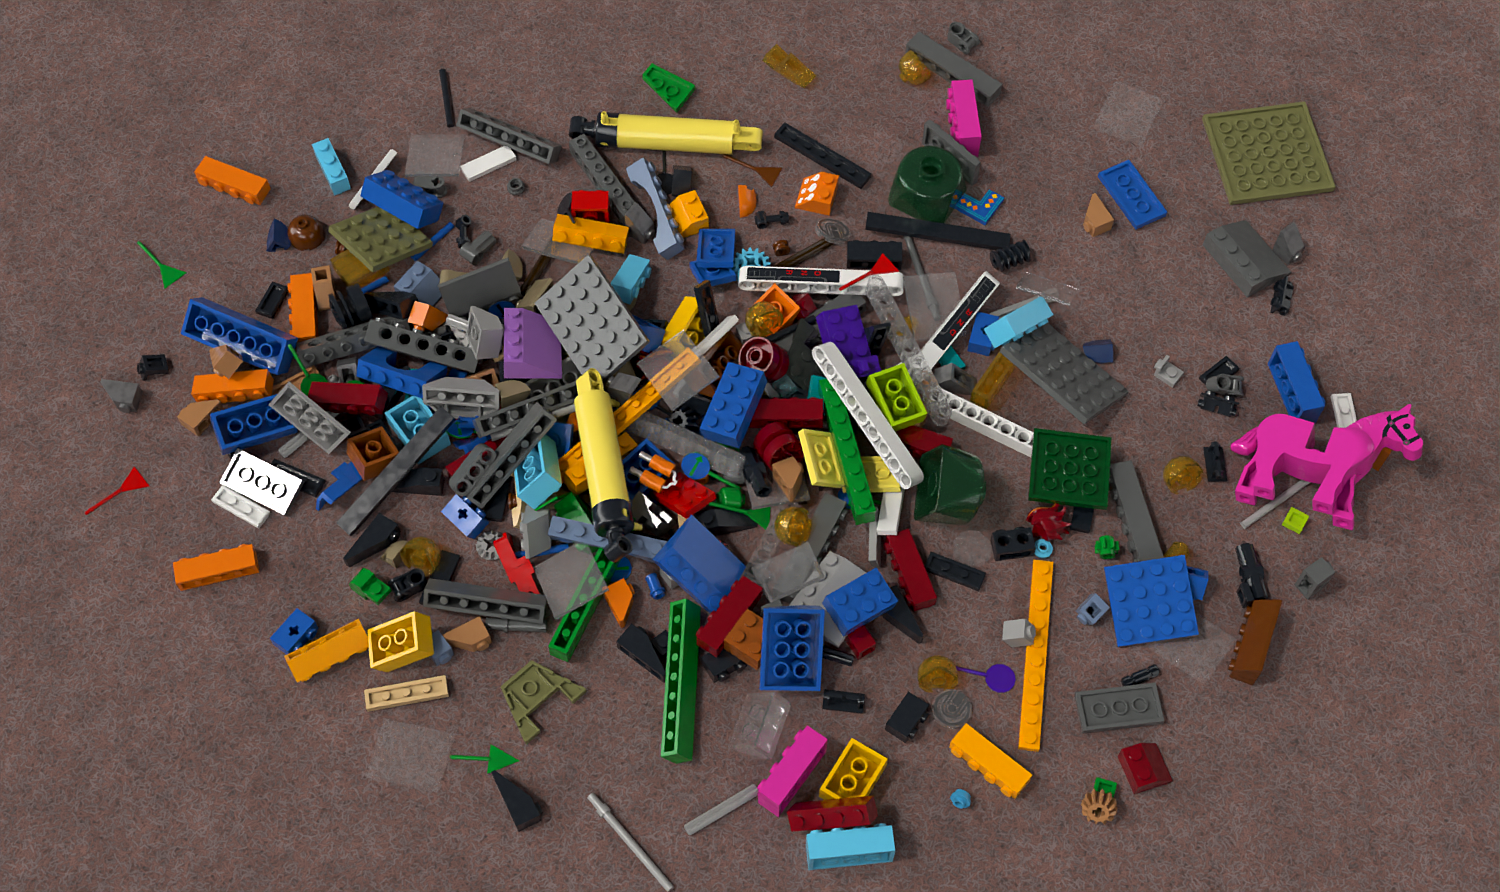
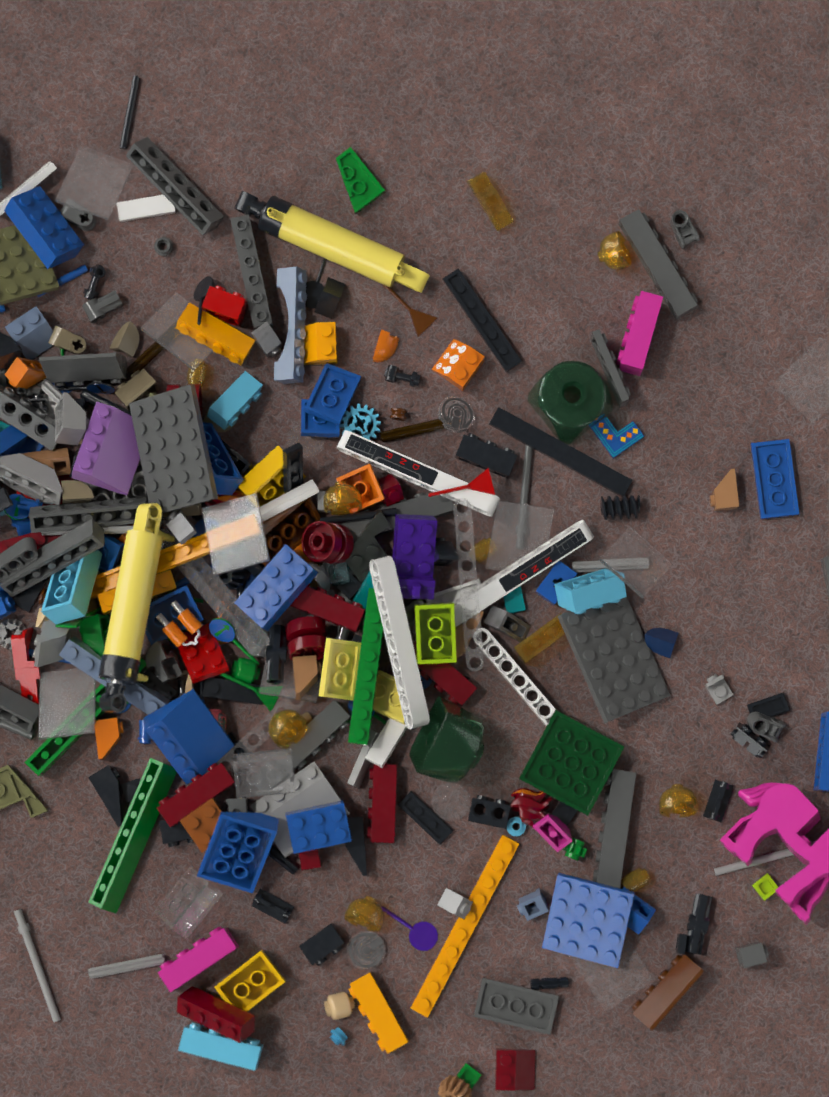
camera: 25 degrees right, 20 degrees up
(948, 768) = (339, 1005): none -> tan head
(1081, 534) = (554, 831): none -> dark pink slope

